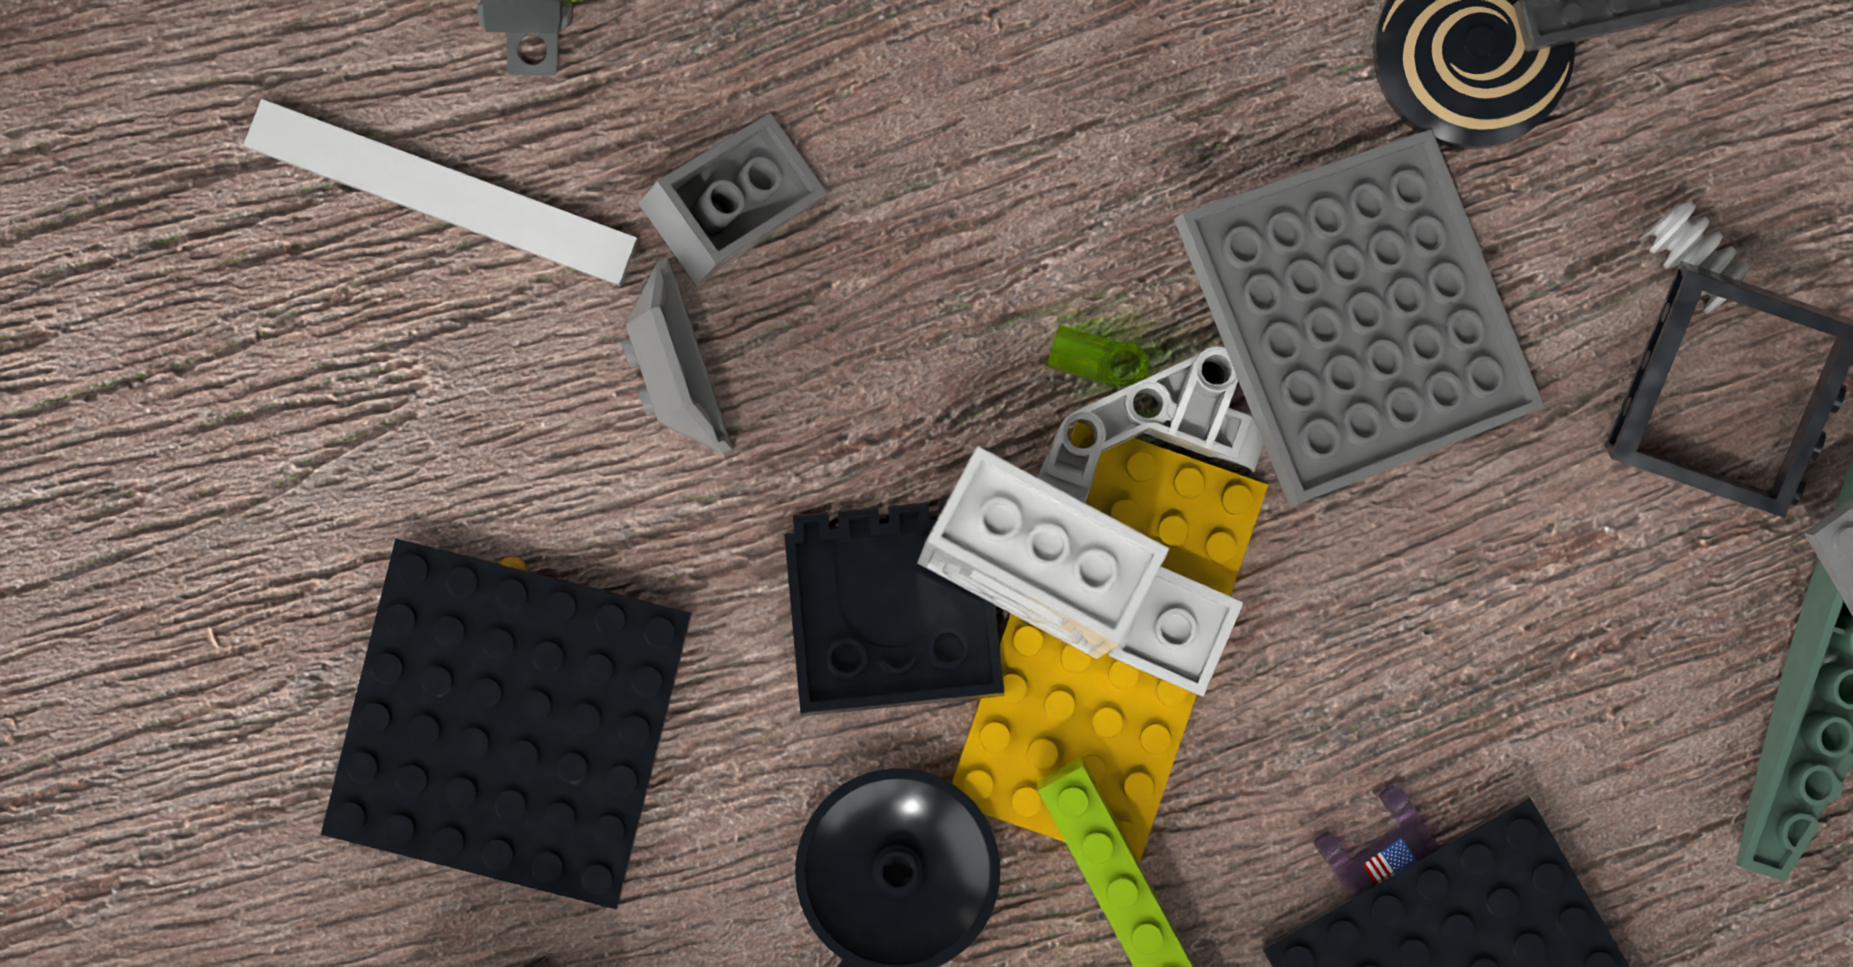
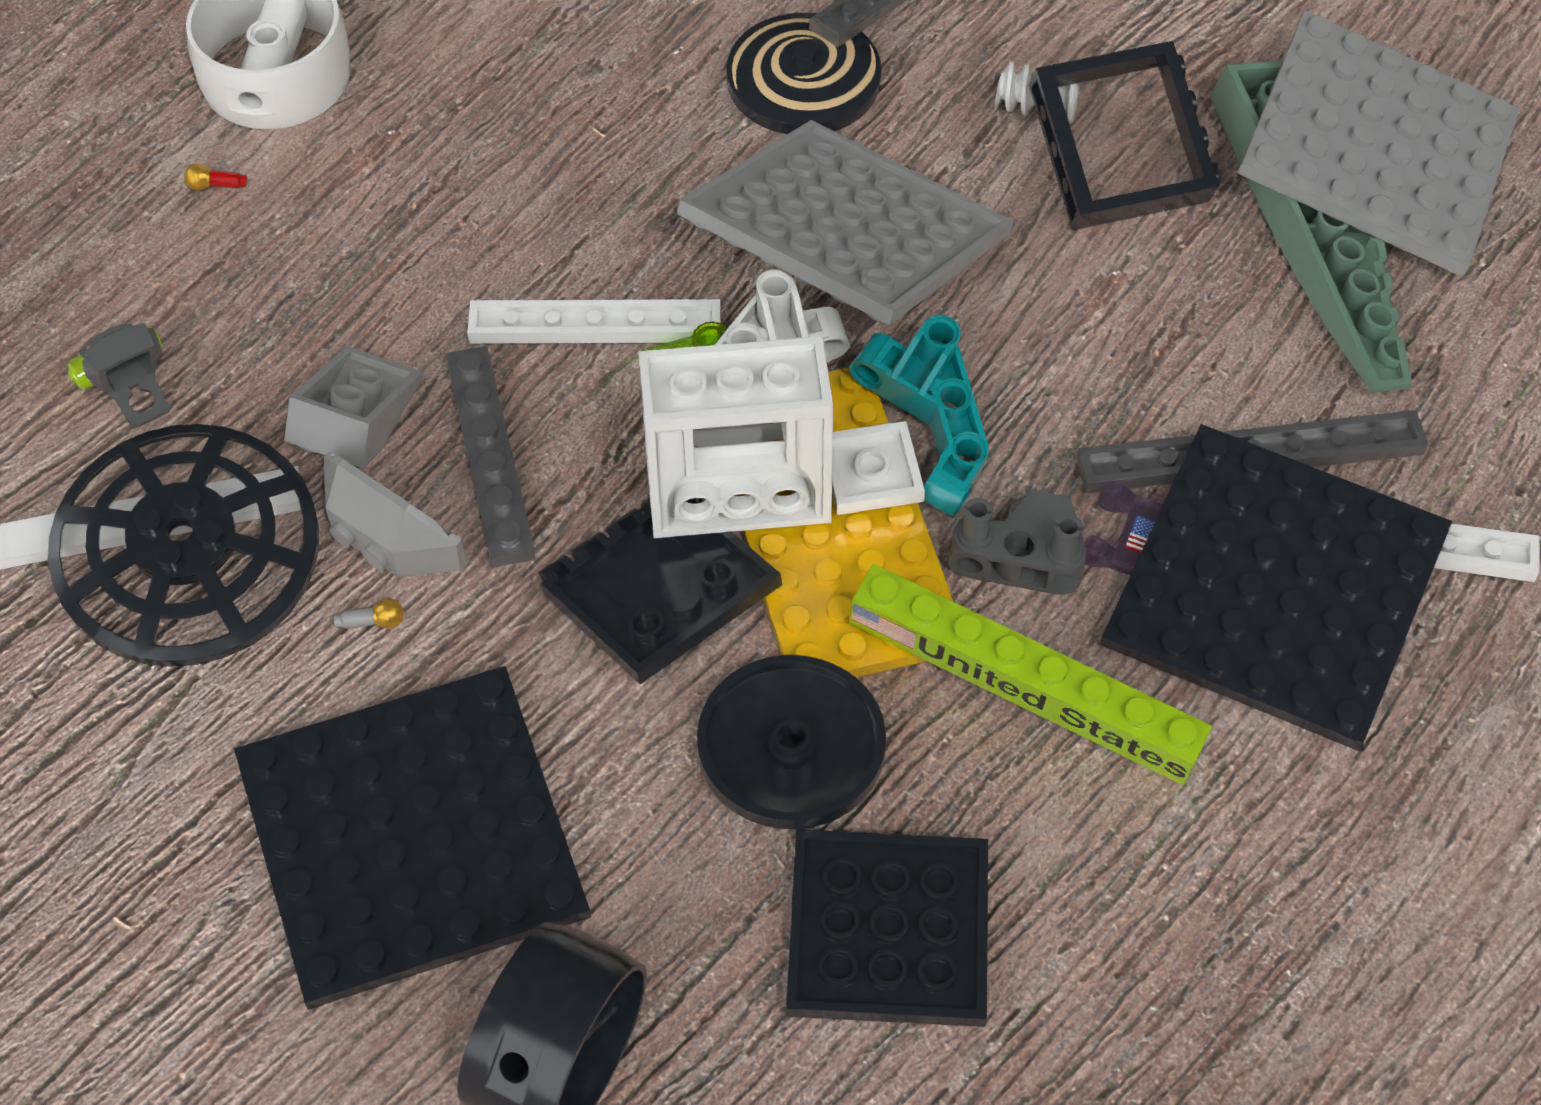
camera: 25 degrees left, 30 degrees down
(509, 268) = (186, 560): none -> black dish
(622, 467) = (386, 614): none -> piece
(831, 341) = (490, 457): none -> flat silver plate
(1032, 248) = (588, 320): none -> white plate
(1289, 798) = (1032, 549): none -> dark grey piece
(1295, 562) = (920, 383): none -> teal connector
(1588, 850) = (1308, 442): none -> flat silver plate

